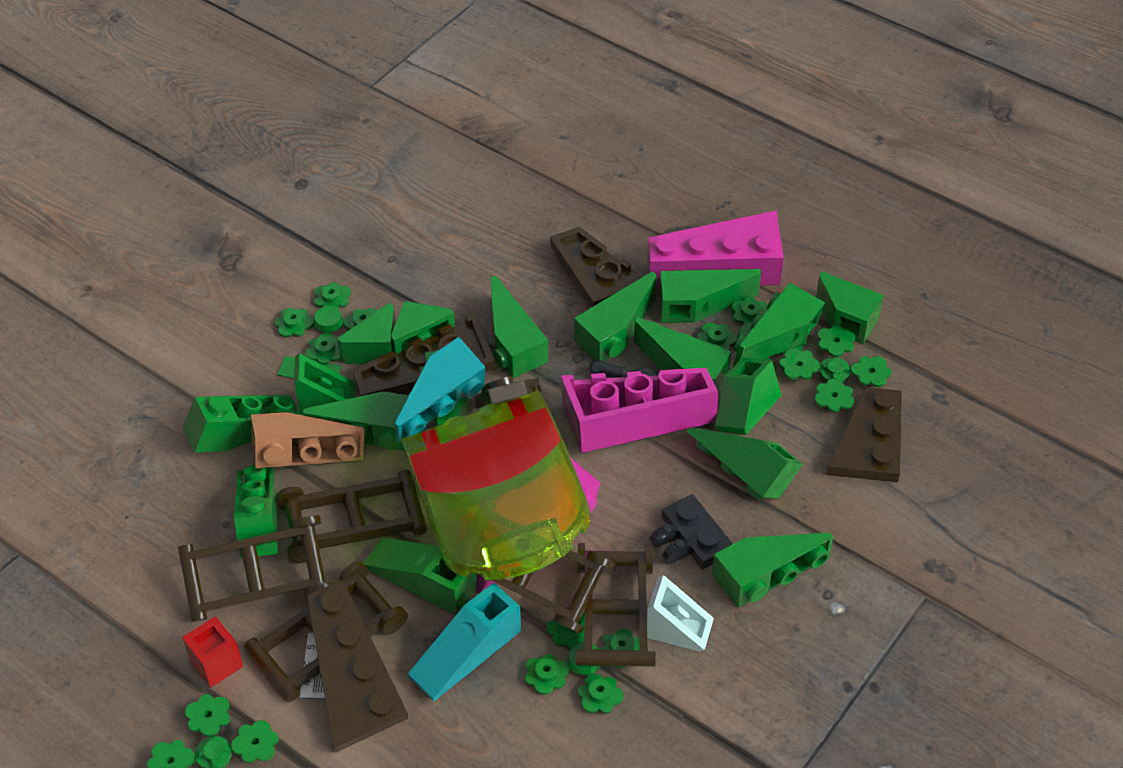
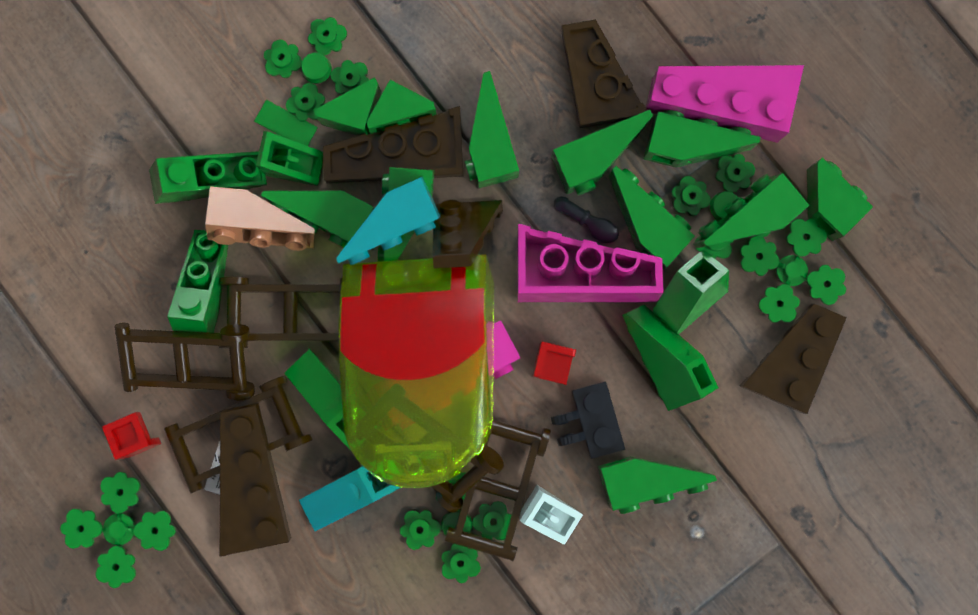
camera: 15 degrees right, 35 degrees up
(634, 487) = (553, 362): none -> red panel

